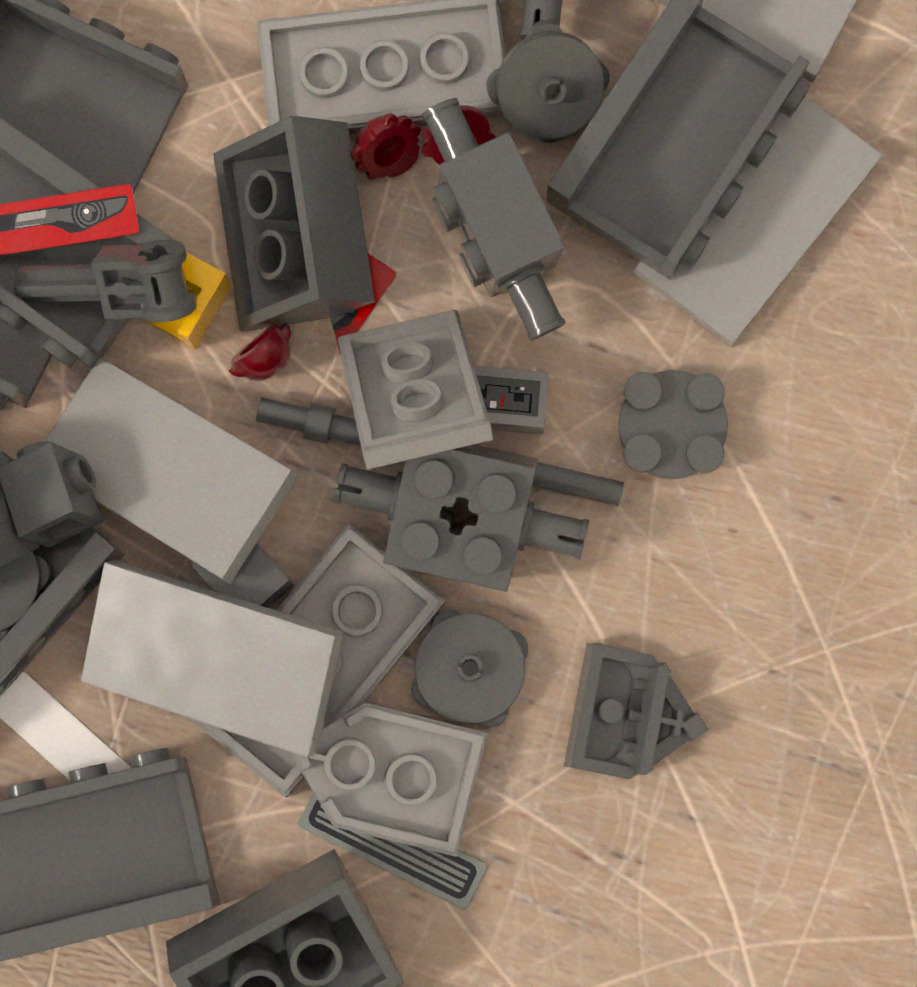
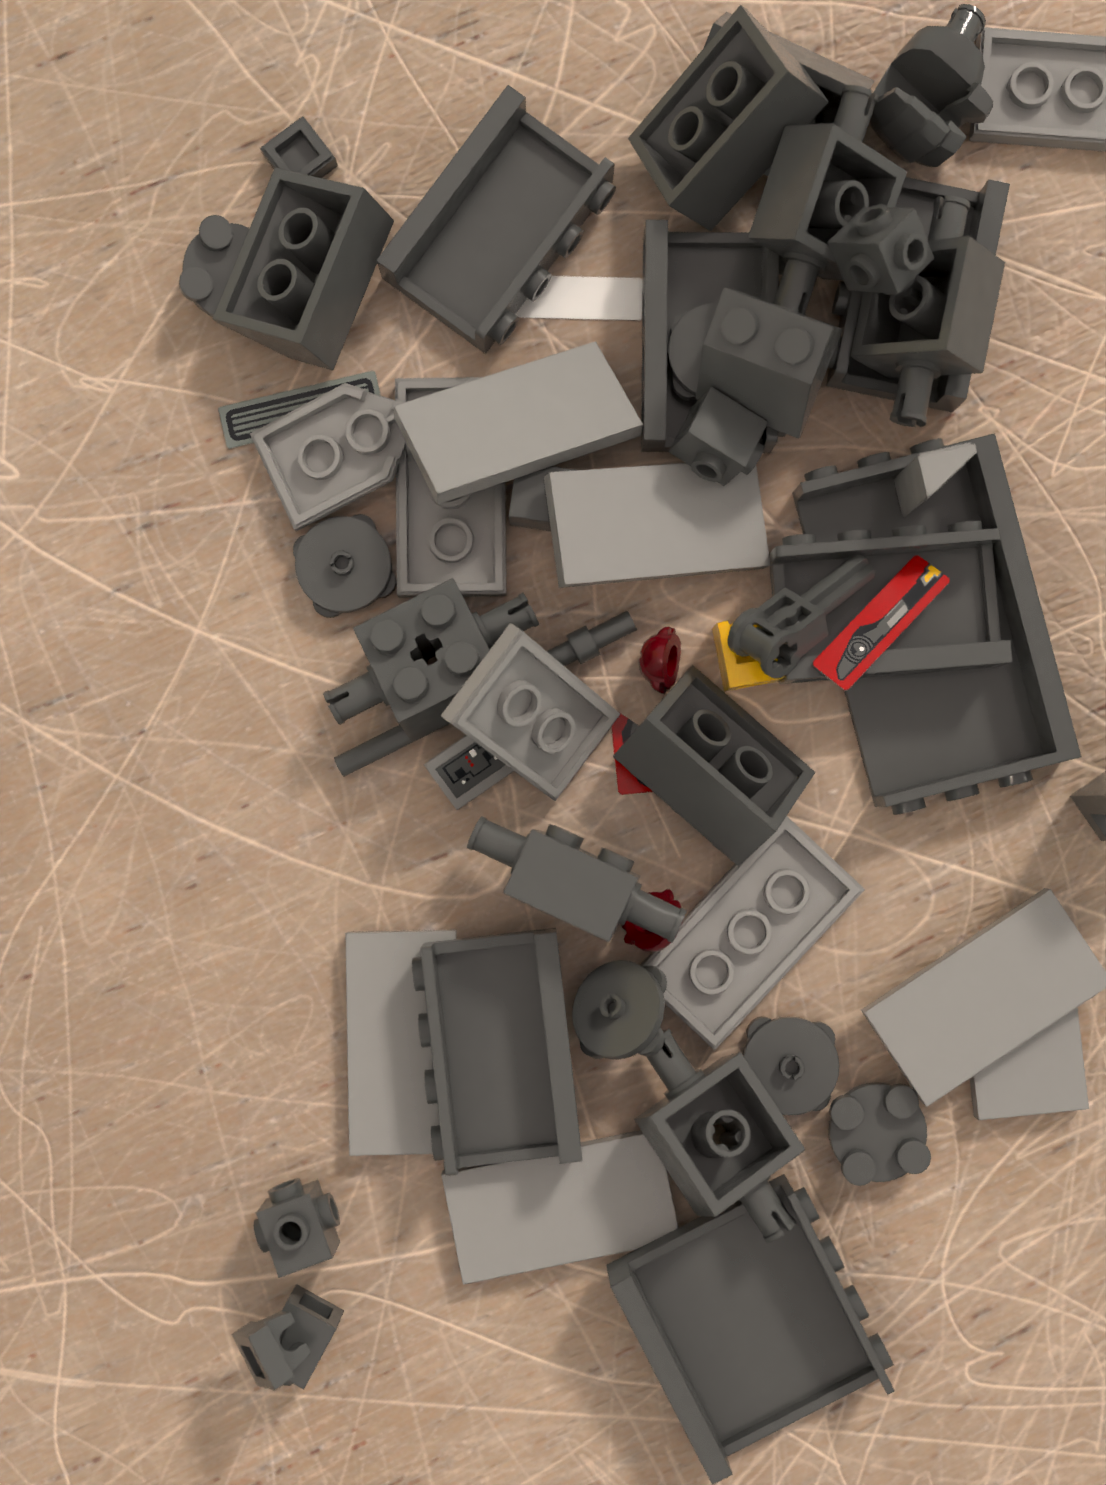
camera: 140 degrees right, 5 degrees up
(386, 146) = (698, 873): dark red animal -> none
(627, 714) = (213, 621): dark grey slope -> none
(673, 423) = (340, 843): dark grey piece -> none

